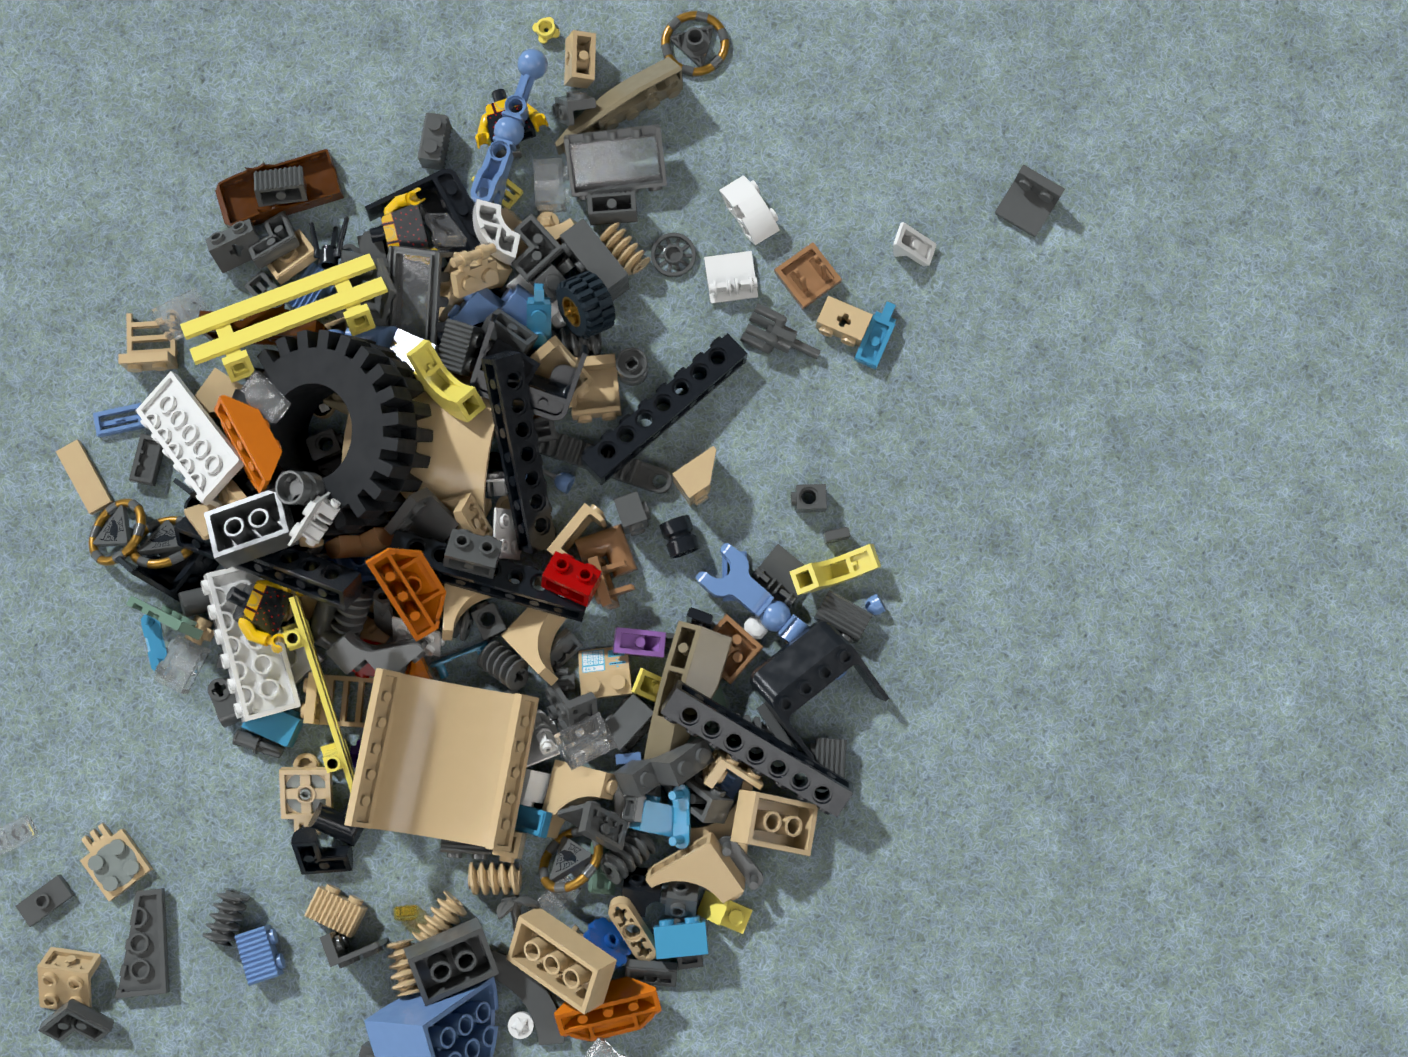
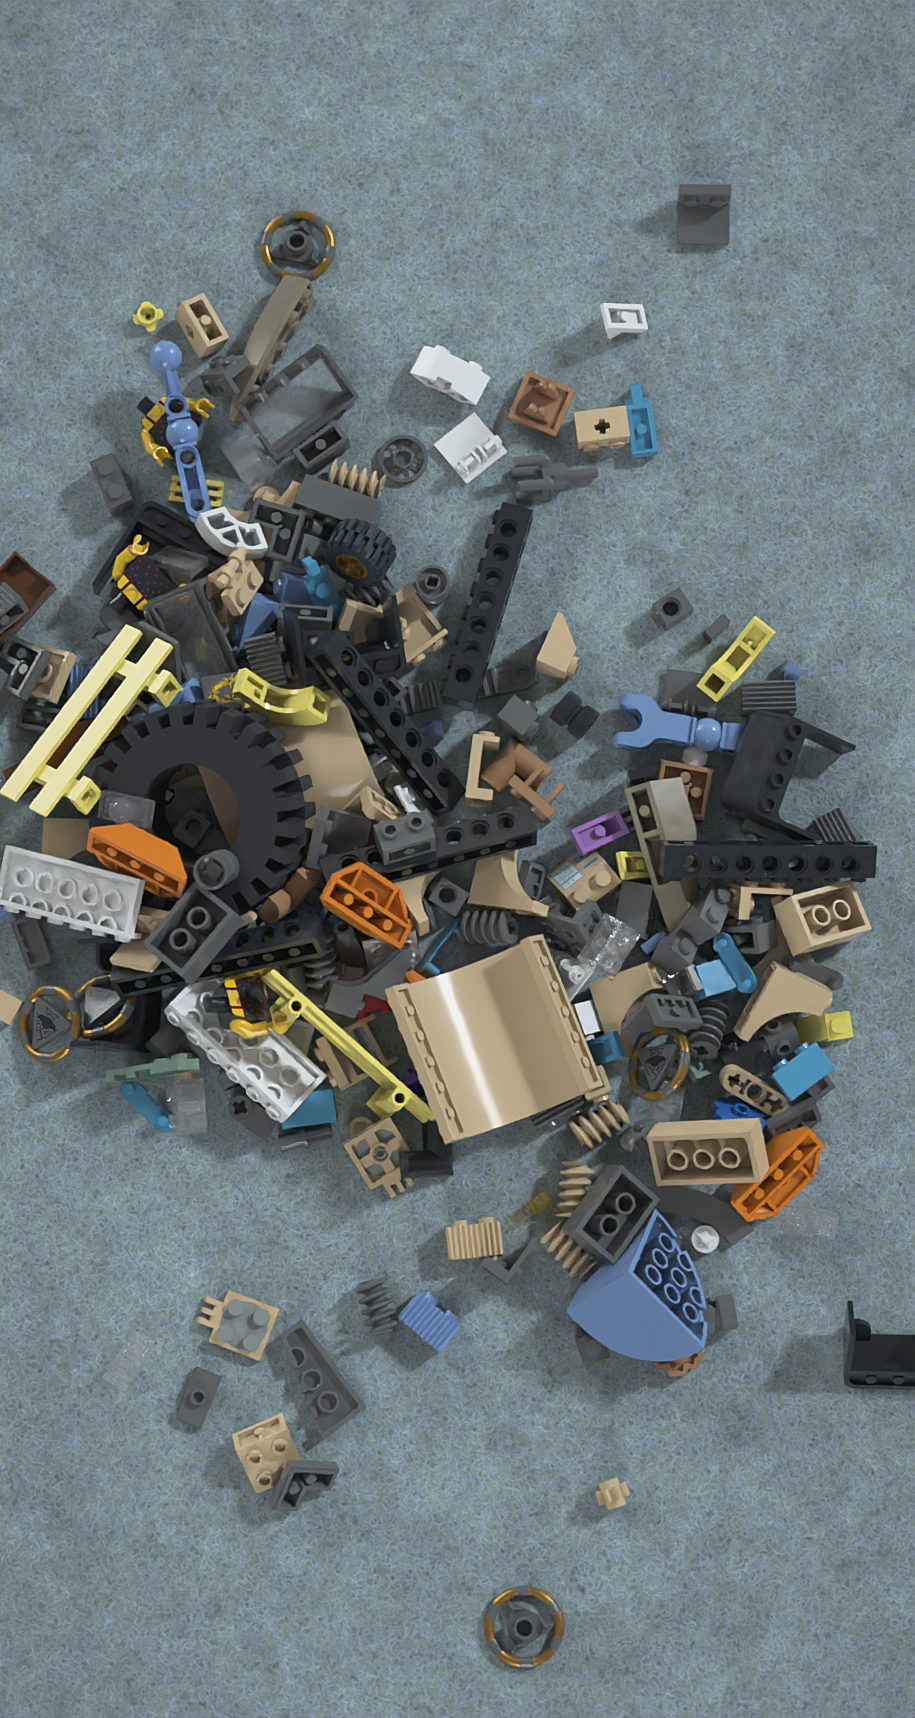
camera: 30 degrees left, 0 degrees up
(317, 515) = (246, 877): white hinge -> none
(317, 859) = (427, 1204): black brick -> none
(329, 254) = (84, 649): black plant -> none
(571, 578) = (507, 807): red brick -> none

